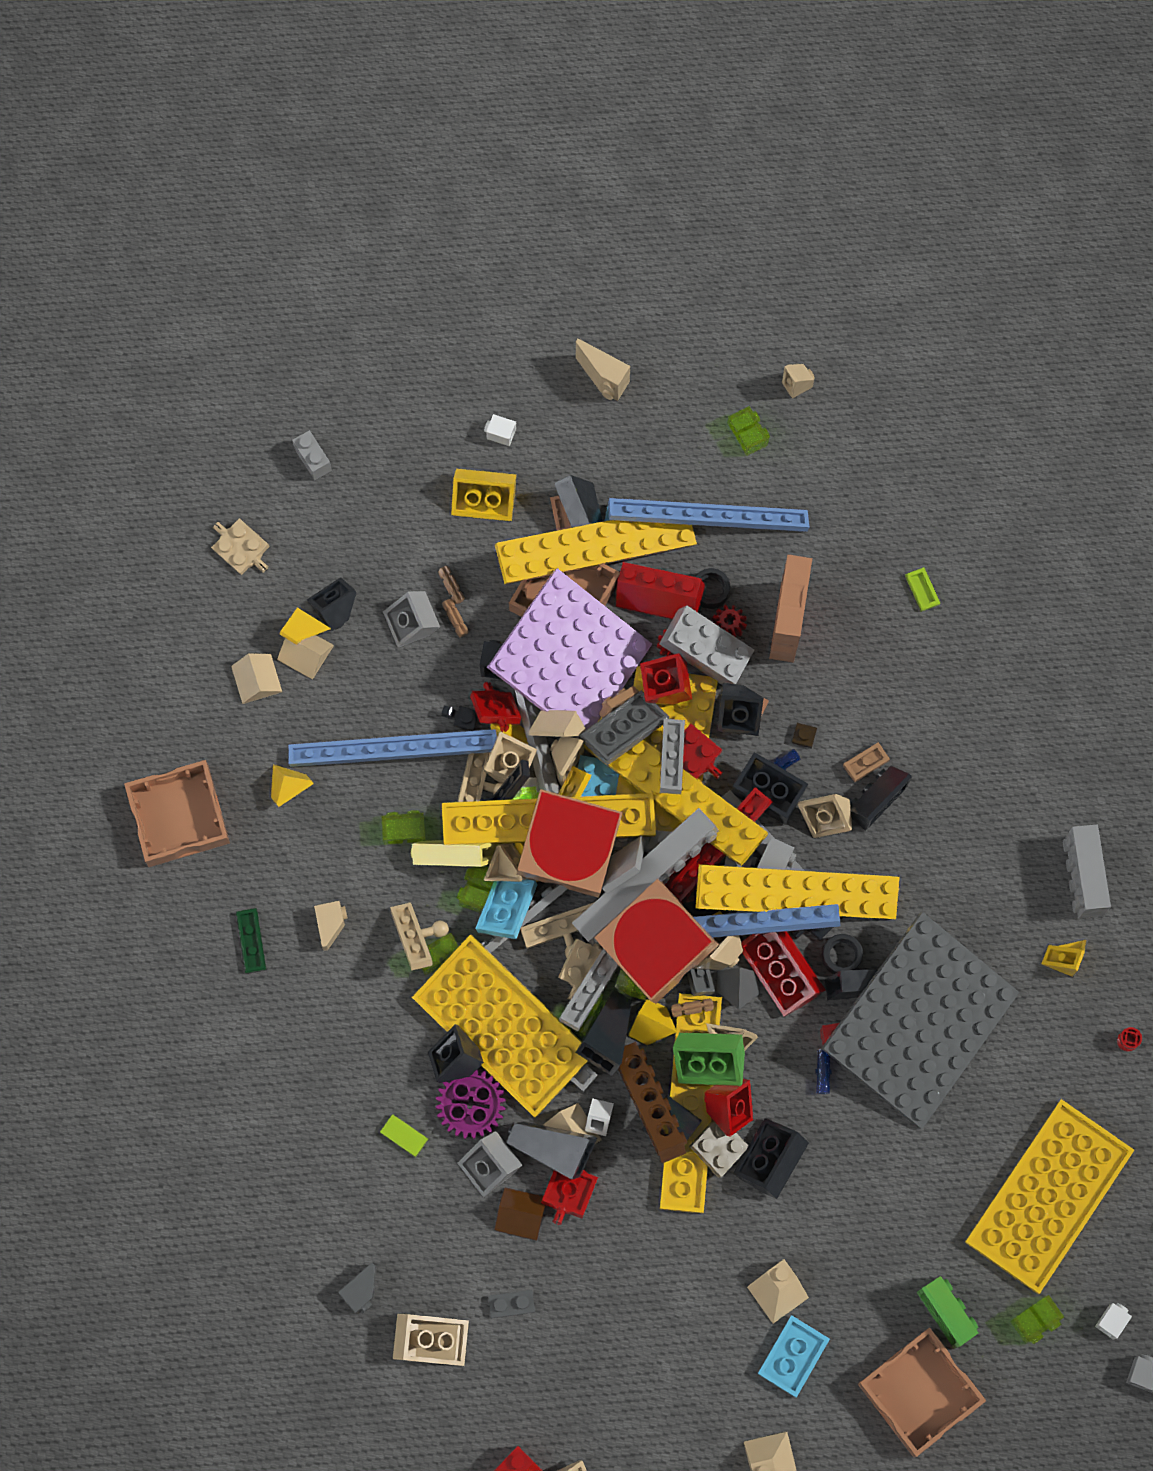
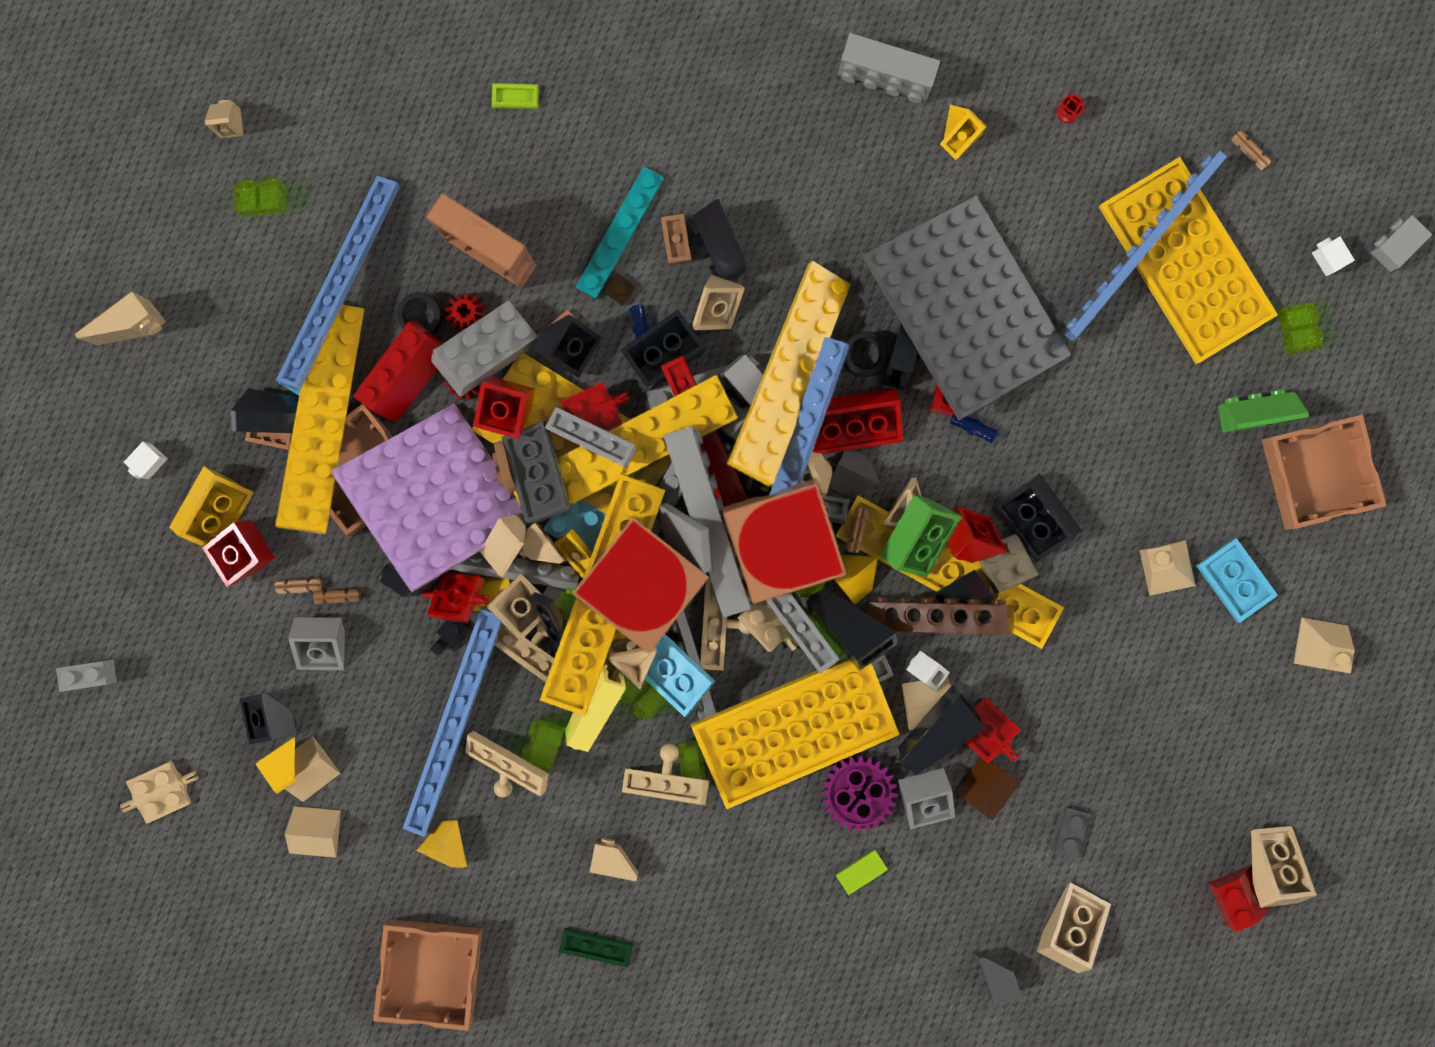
camera: 65 degrees left, 15 degrees up
(376, 803) = (507, 764): none -> tan plate
(454, 1056) = (806, 791): black slope -> none
(459, 528) = (238, 552): none -> red slope
(851, 716) = (620, 232): none -> teal plate
(1051, 1150) = (1150, 237): none -> medium blue plate

